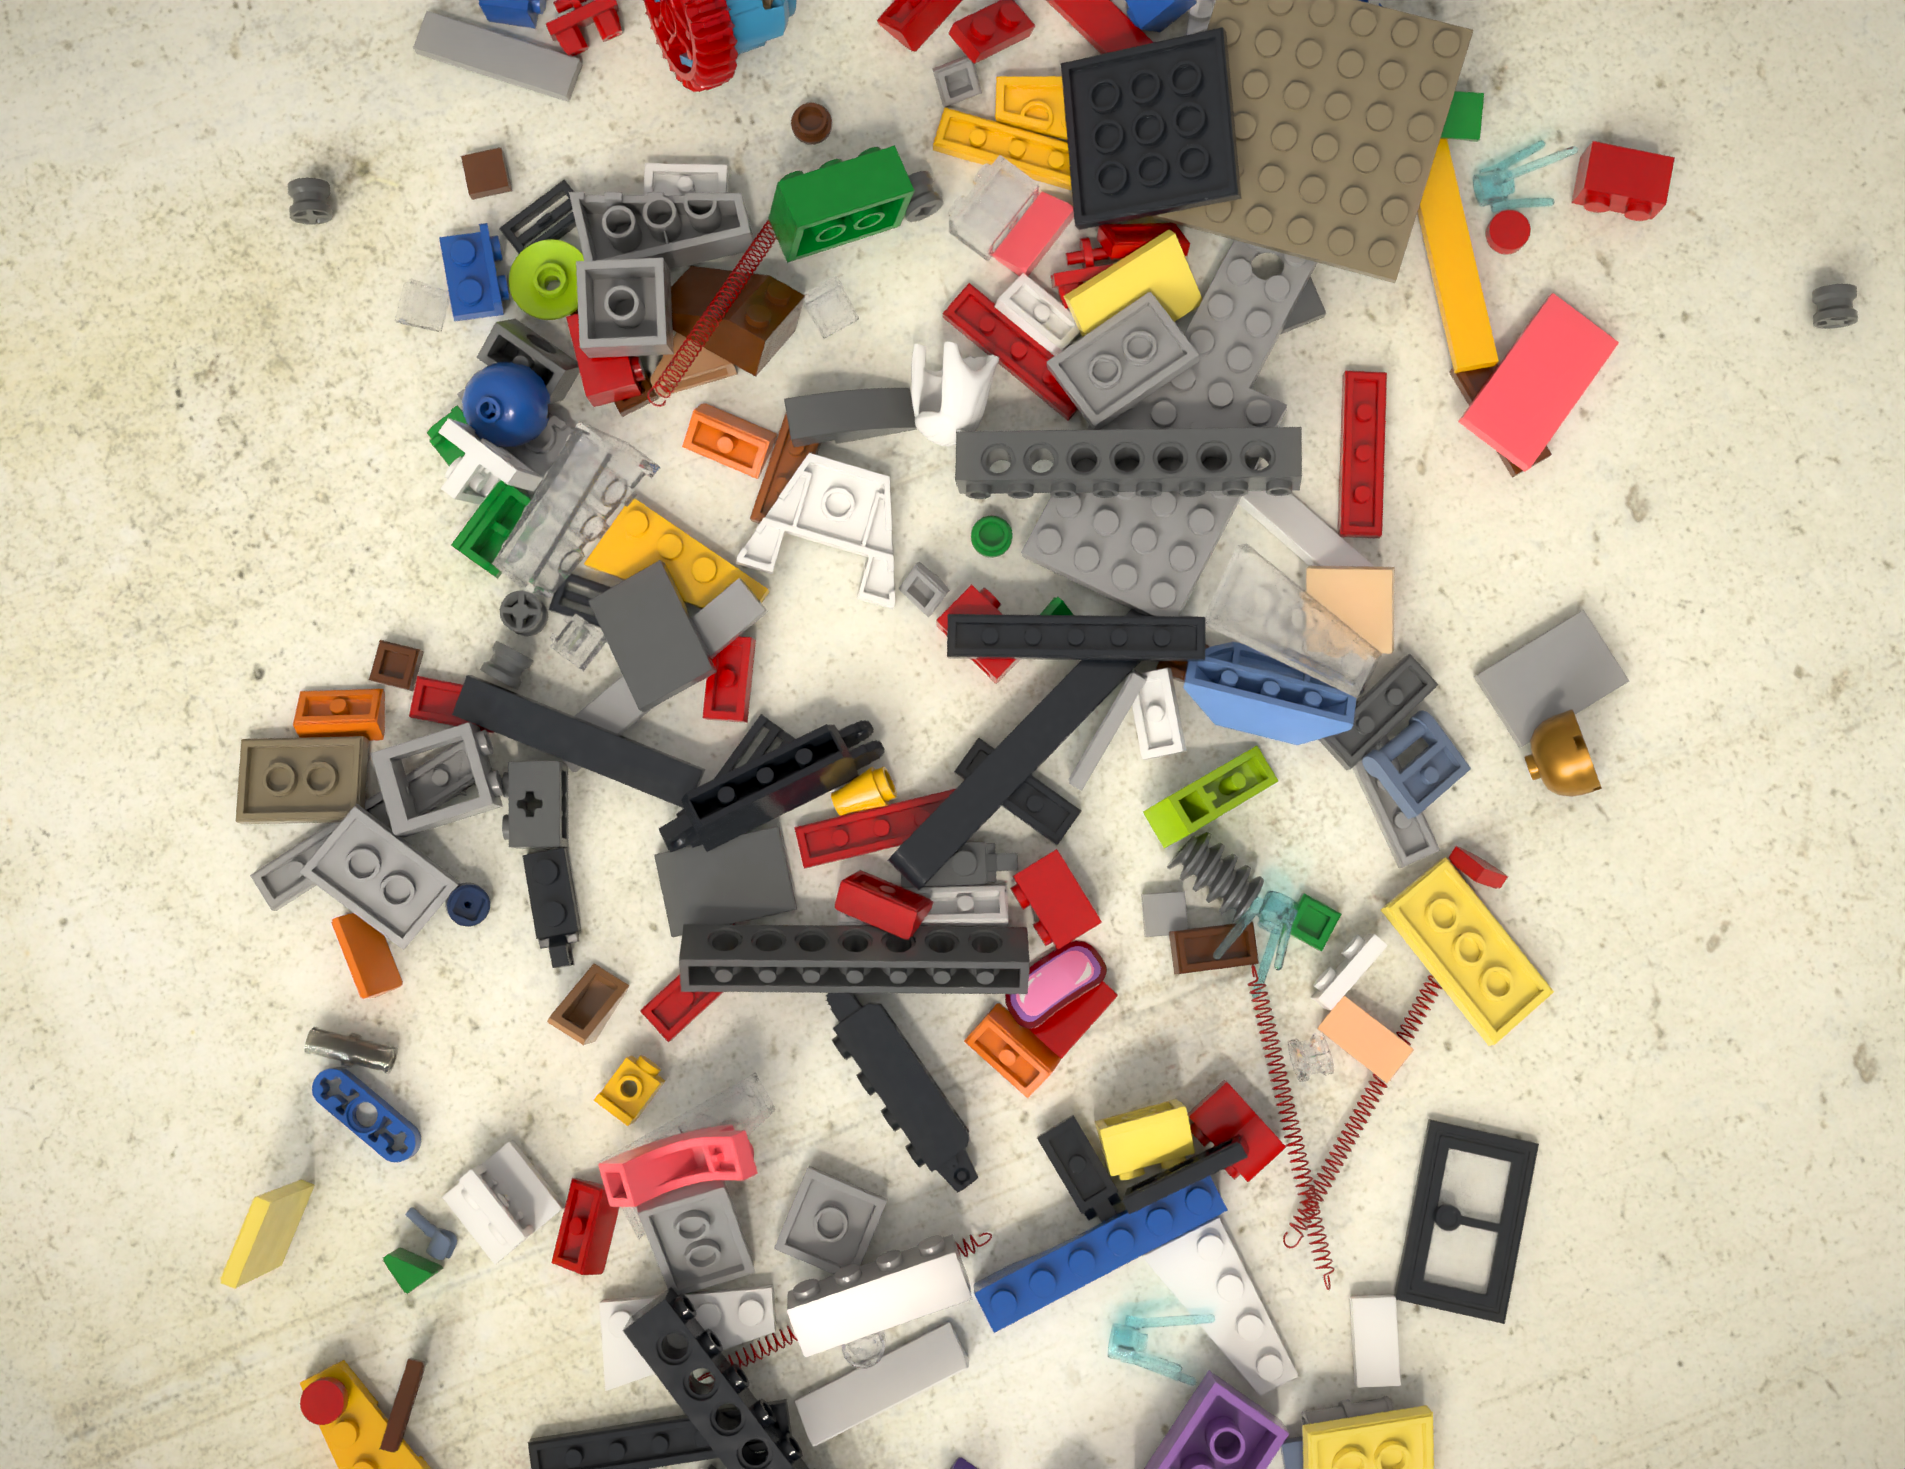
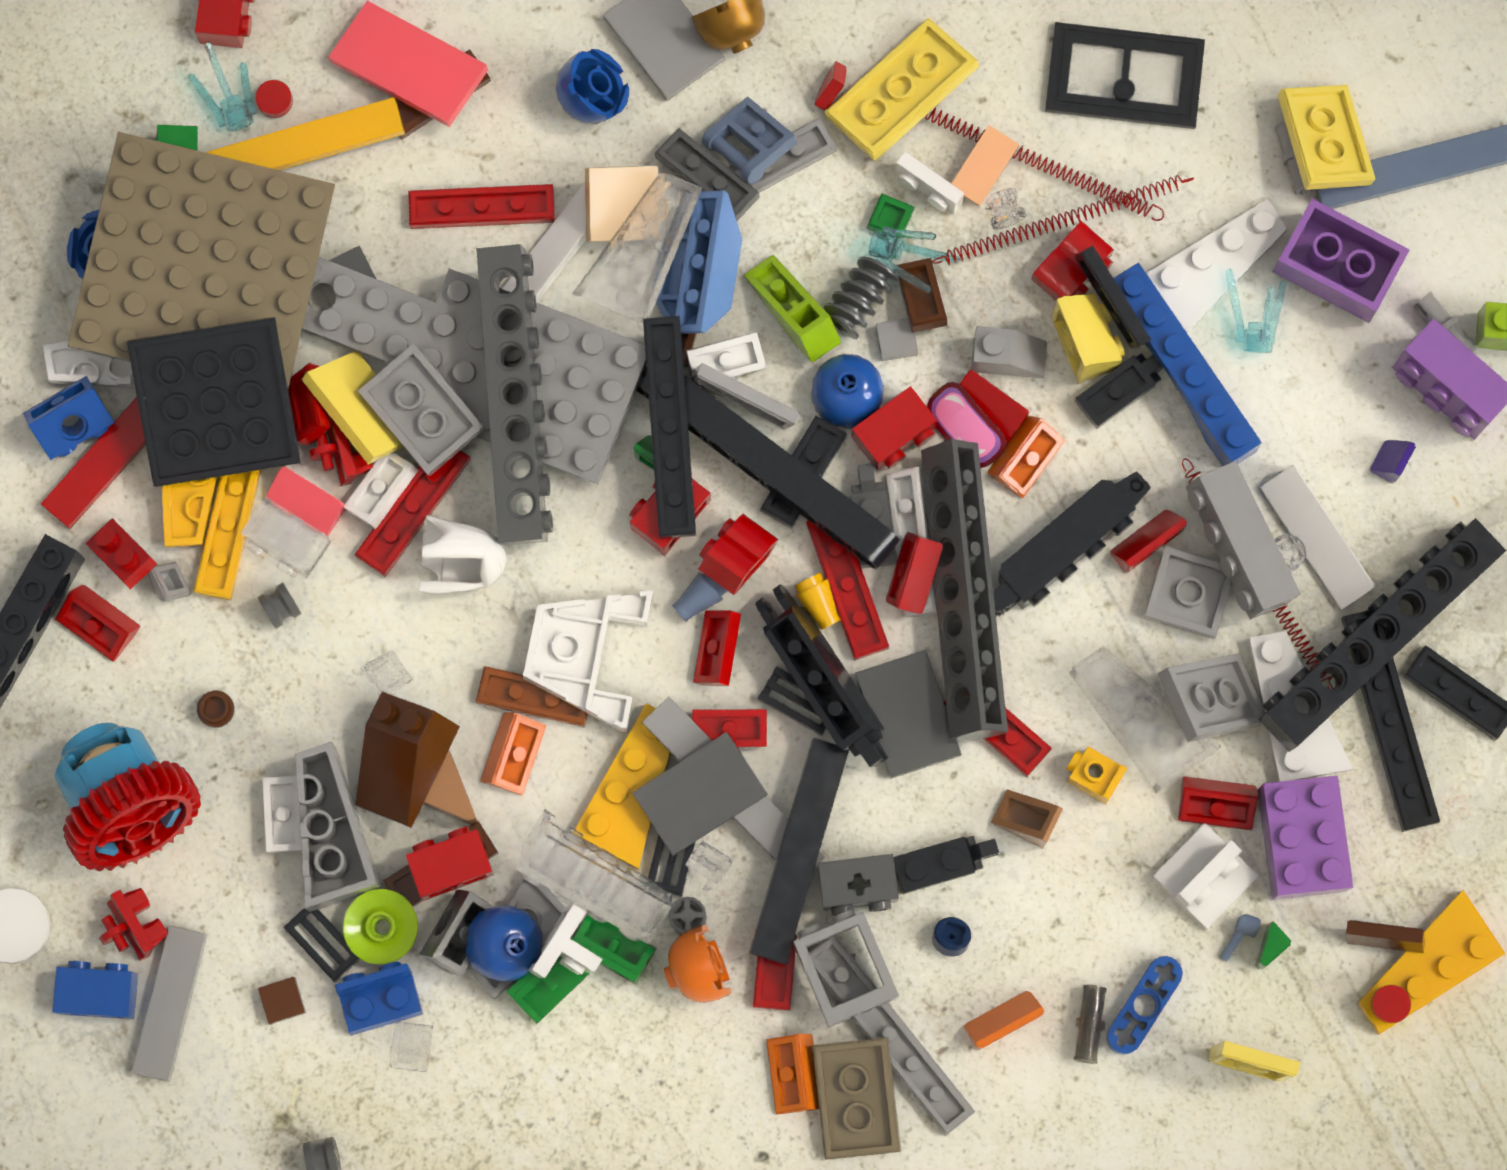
camera: 100 degrees left, 5 degrees down
(379, 876) = (935, 1012): light grey plate -> none
(396, 665) = (744, 1028): reddish brown tile -> none
(460, 618) = (697, 967): none -> orange cylinder
(506, 665) = (736, 925): dark grey wheel -> none
(528, 1325) = (1305, 837): none -> medium lavender brick
(624, 307) = (415, 835): light grey brick -> none
(677, 1162) = (1149, 708): coral arch -> none
(709, 307) = (403, 753): red piece -> none
(820, 672) = (717, 648): none -> red plate
(840, 202) = (296, 666): green brick -> none
(849, 415) = (484, 646): dark grey slope -> none
(884, 660) = (698, 596): none -> sand blue cone
(899, 1182) = (1148, 539): none -> red slope
(924, 589) = (634, 566): light grey slope -> none
(924, 703) = (736, 553): none -> red brick
(991, 536) = (581, 514): green plate -> none
(1086, 855) = (844, 405): none -> blue cylinder
(1135, 1043) = (1008, 353): none -> light grey slope
(1375, 1340) = (1231, 140): white tile -> none
(1494, 586) = (591, 87): none -> blue cylinder

